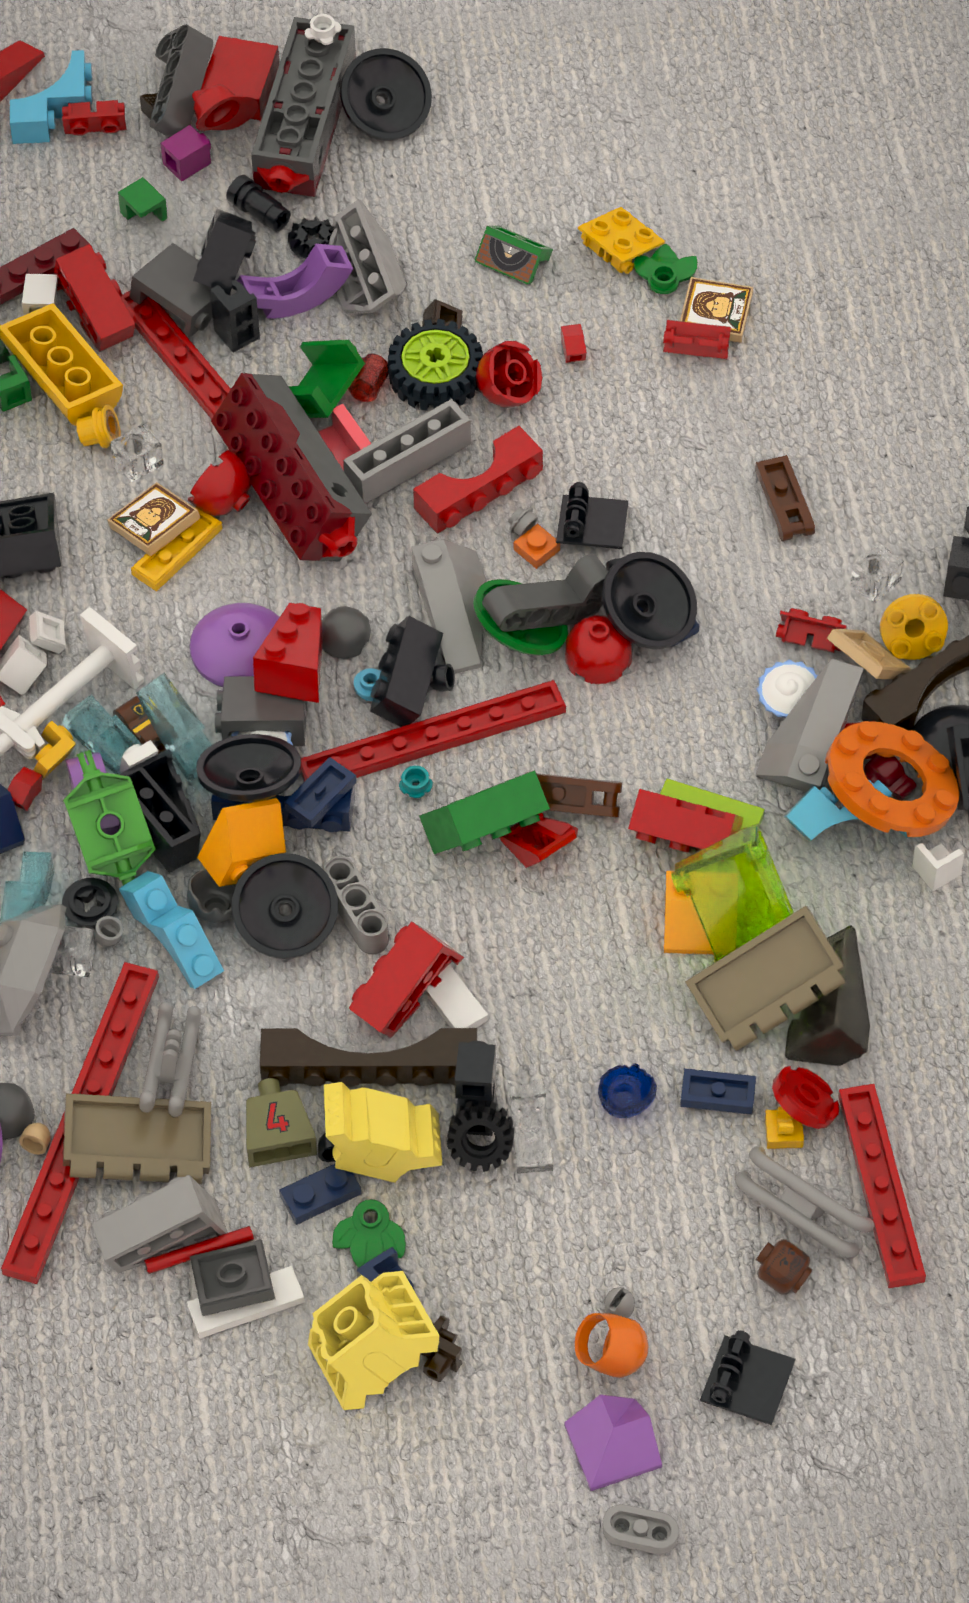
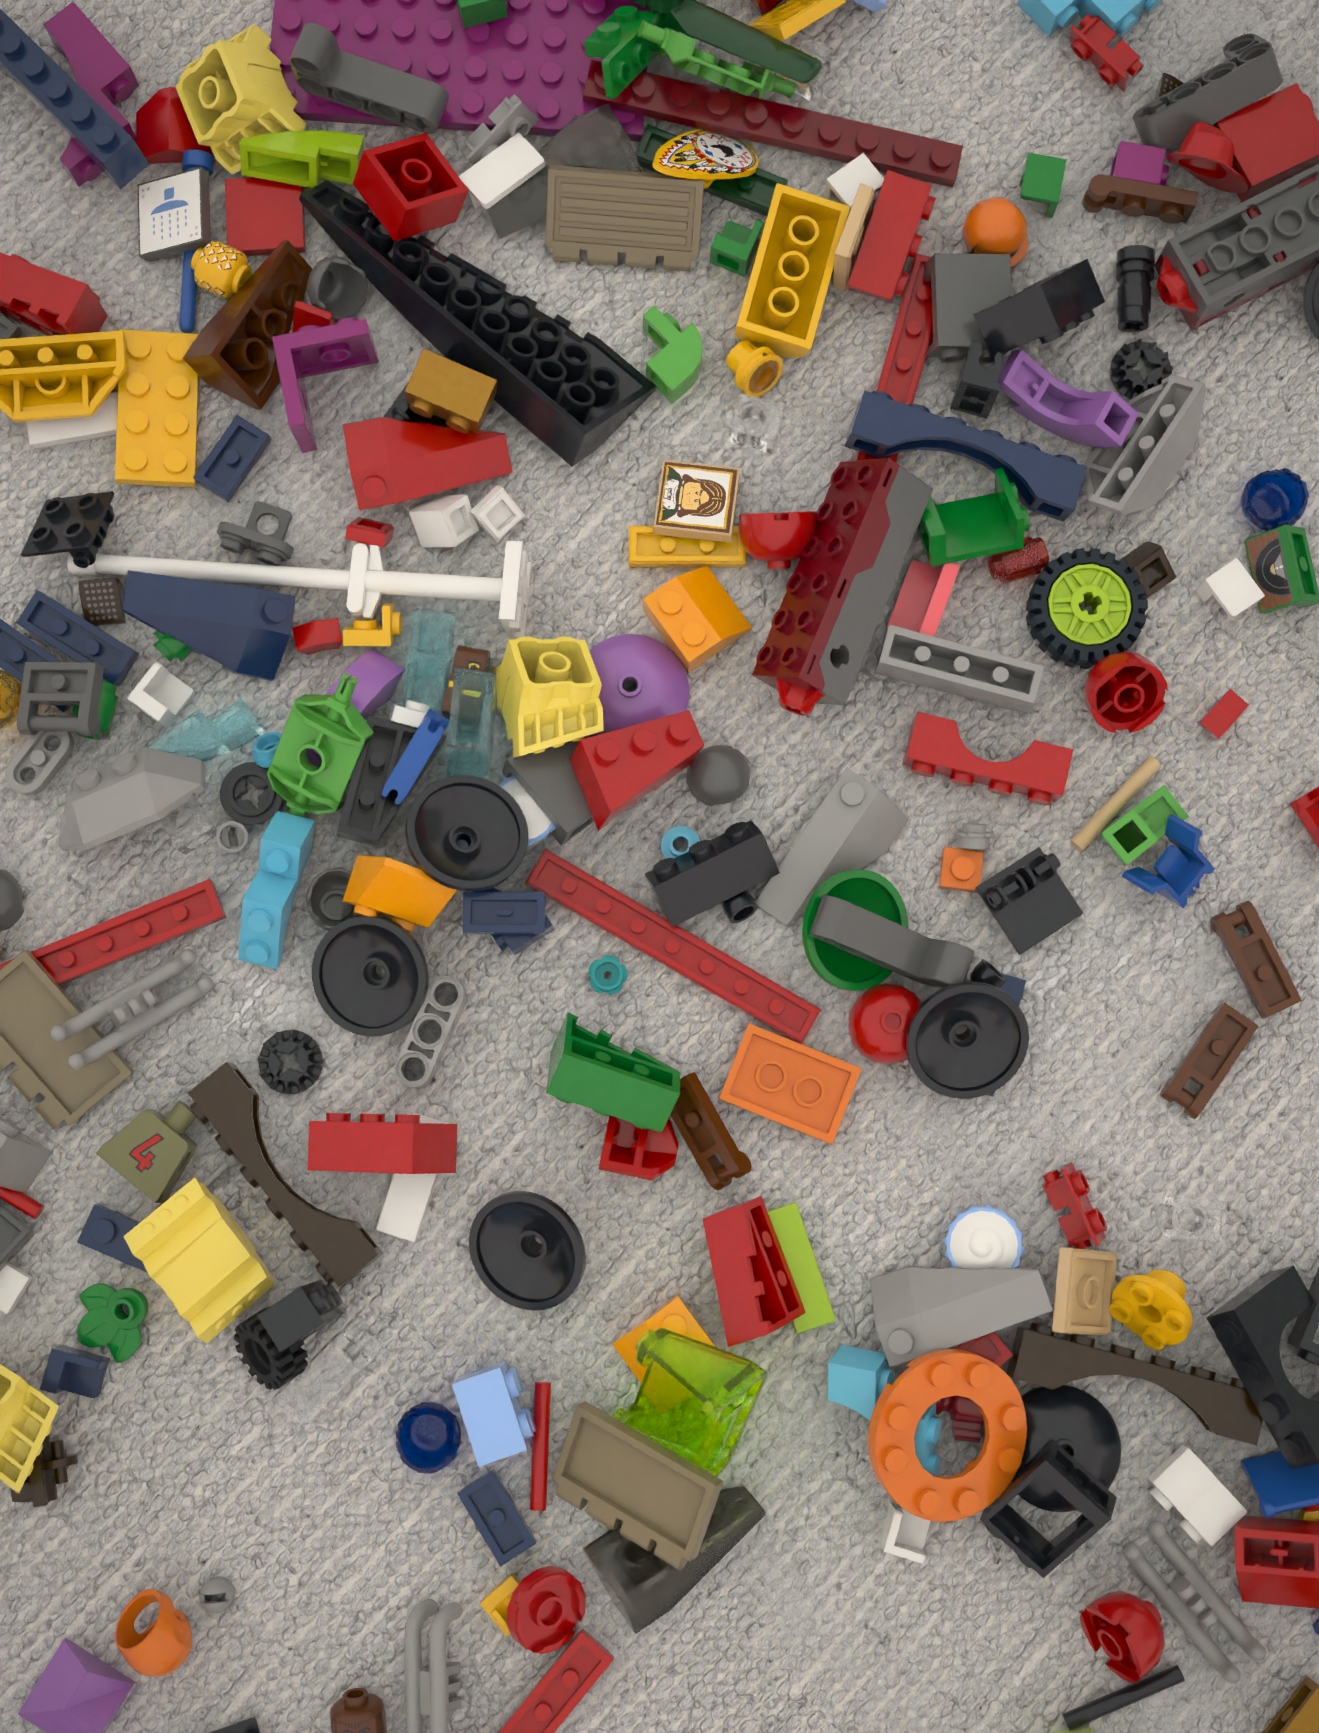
camera: 50 degrees right, 25 degrees up
(48, 461) = (680, 357): none -> bright green brick
(72, 868) = (265, 748): none -> medium azure plate
(74, 309) = (852, 236): none -> tan tile
(144, 241) = (996, 228): none -> orange helmet
(169, 764) = (416, 755): none -> blue piece
(204, 666) = (548, 693): none -> light yellow slope
(205, 162) = (1139, 198): none -> reddish brown plate
(210, 380) = (1043, 481): none -> dark blue arch
(228, 575) = (695, 616): none -> light orange slope
(284, 1017) = (308, 1057): none -> black gear
(464, 223) = (1274, 499): none -> clear blue hair
(498, 279) = (1231, 588): none -> white panel
(575, 437) = (1115, 803): none -> tan bar
(582, 938) = (514, 1262): none -> black dish
(585, 728) = (790, 1083): none -> orange plate
(603, 425) = (1142, 825): none -> bright green brick
(645, 1031) = (494, 1412): none -> light blue brick
(646, 421) = (1178, 867): none -> blue piece
(693, 1037) = (540, 1446): none -> red bar
(744, 431) = (1256, 960): none -> reddish brown plate

